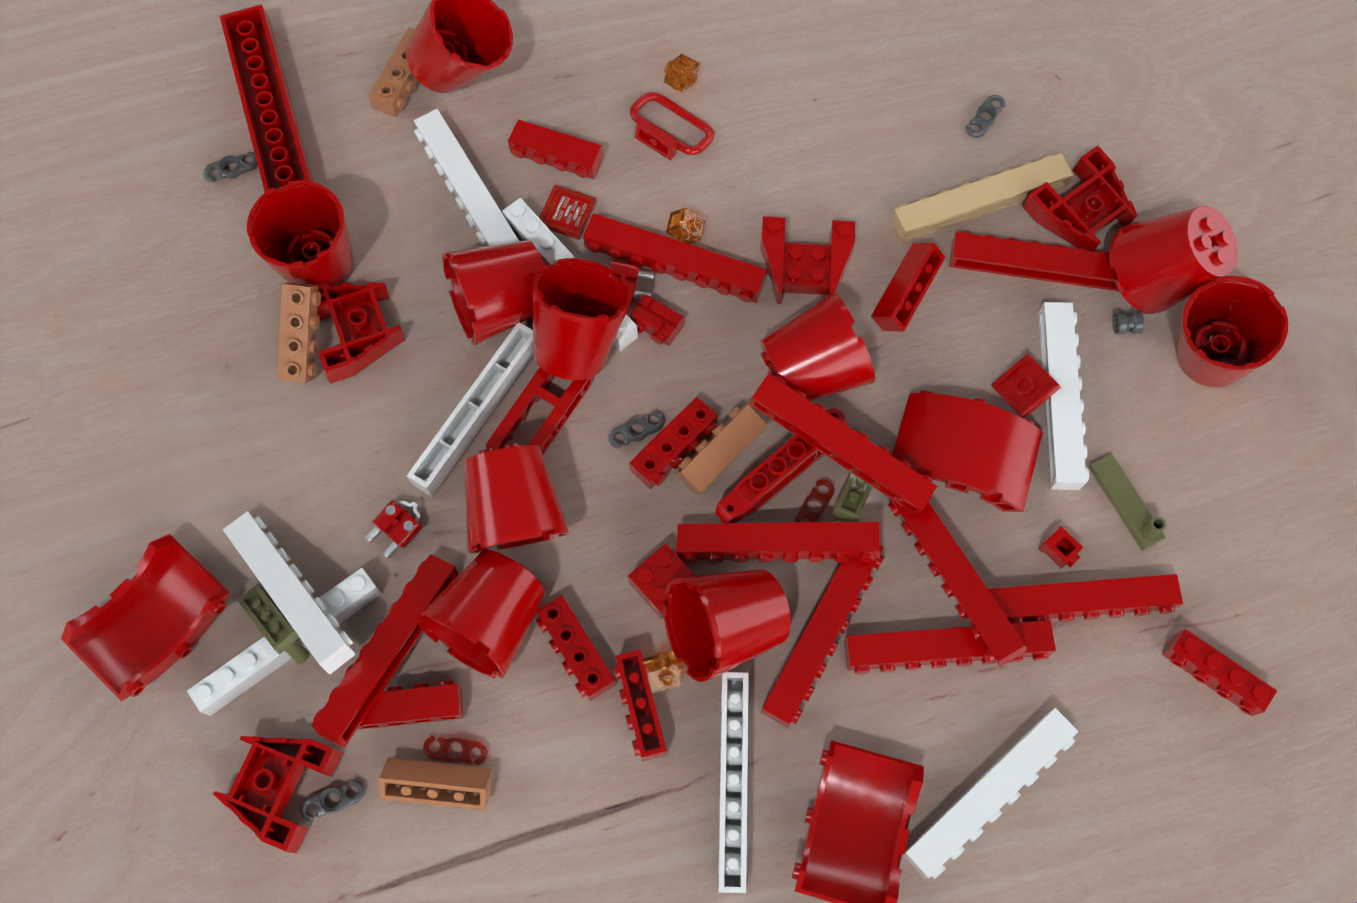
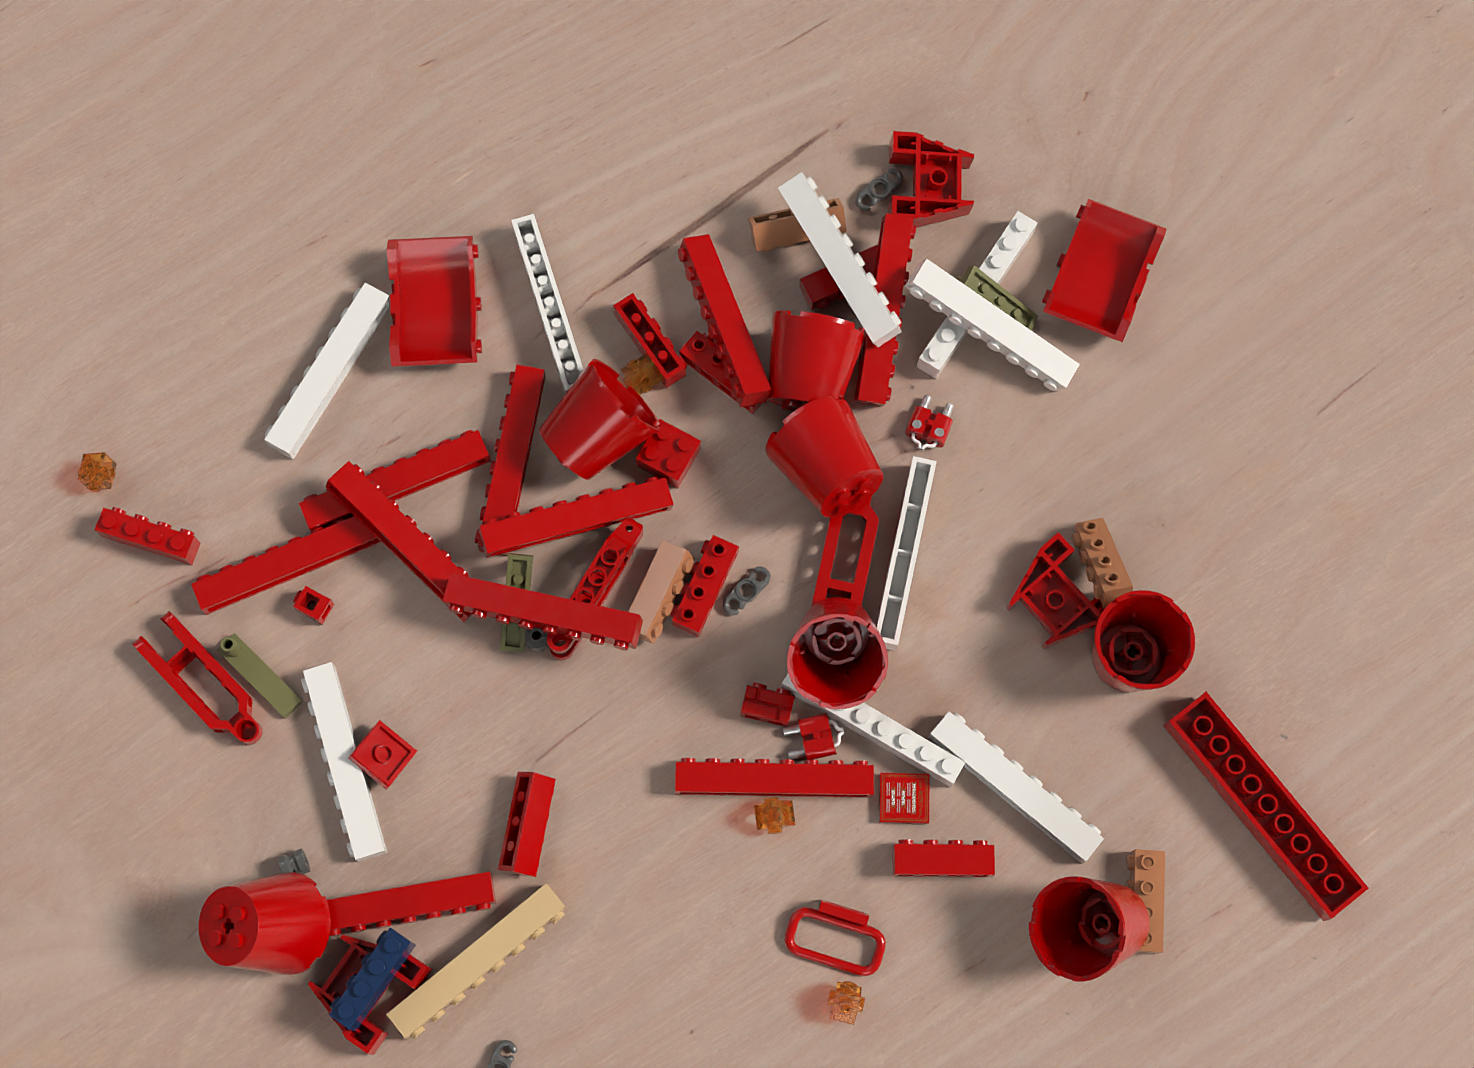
camera: 155 degrees right, 5 degrees up
(220, 166) = (1280, 727): dark grey piece -> none
(409, 710) = (840, 260): none -> white brick
(442, 753) = (786, 266): clear red piece -> none
(492, 287) = (932, 668): red cone -> none
(556, 697) = (724, 320): none -> red brick
(805, 266) = (637, 817): red wedge -> none
(819, 351) = (594, 704): red cone -> none
(823, 499) = (552, 561): clear red piece -> none
(970, 447) = (425, 667): red panel -> none
(1081, 191) = (372, 979): none -> dark blue brick
(1156, 460) = (242, 724): none -> red piece
(1236, 318) = (180, 833): red cone -> none
(1264, 758) = (97, 471): none -> clear orange brick

